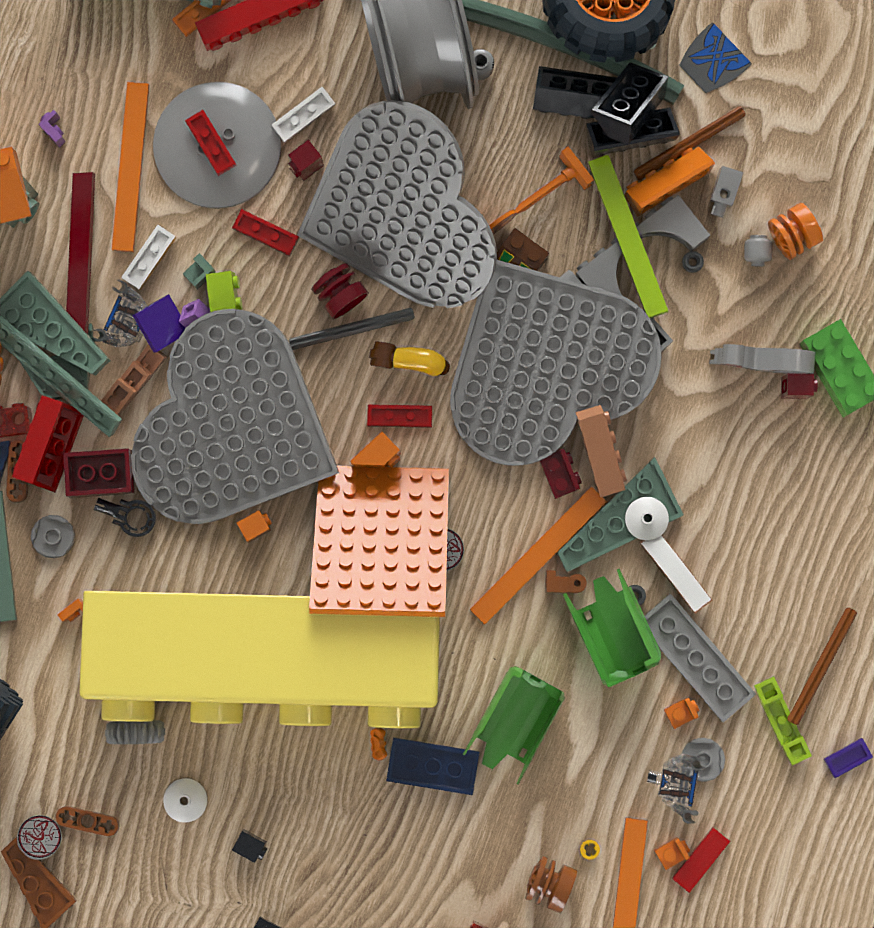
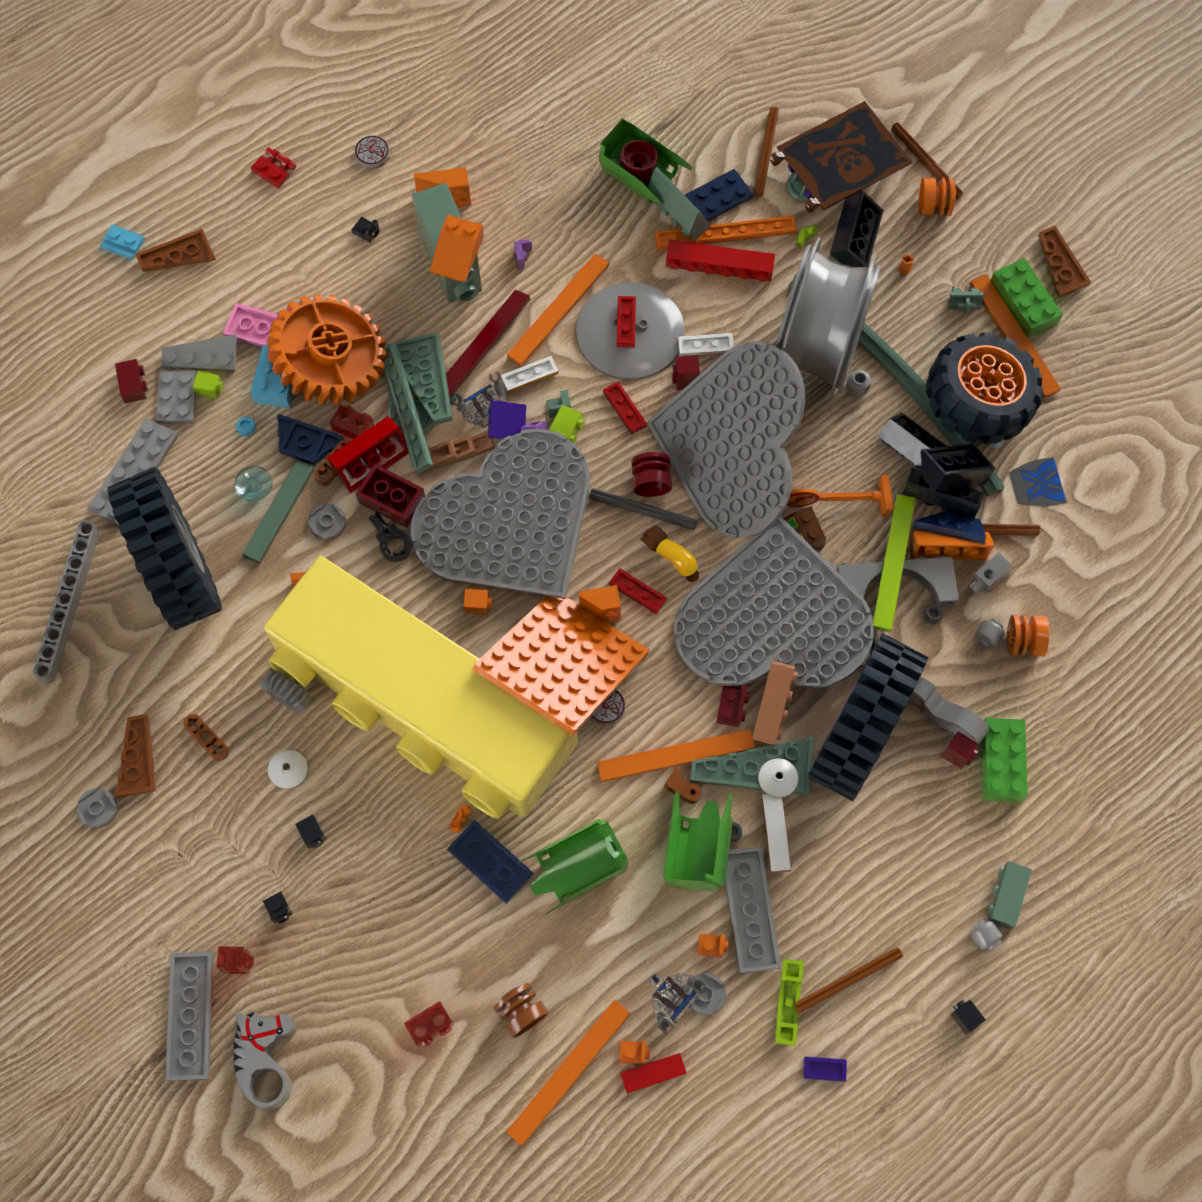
camera: 30 degrees right, 15 degrees down
(39, 837) = (162, 725): tile -> none
(583, 851) = (575, 1008): yellow bush -> none
(662, 161) = (953, 525): none -> dark blue wing
(704, 421) = (868, 717): none -> black wheel

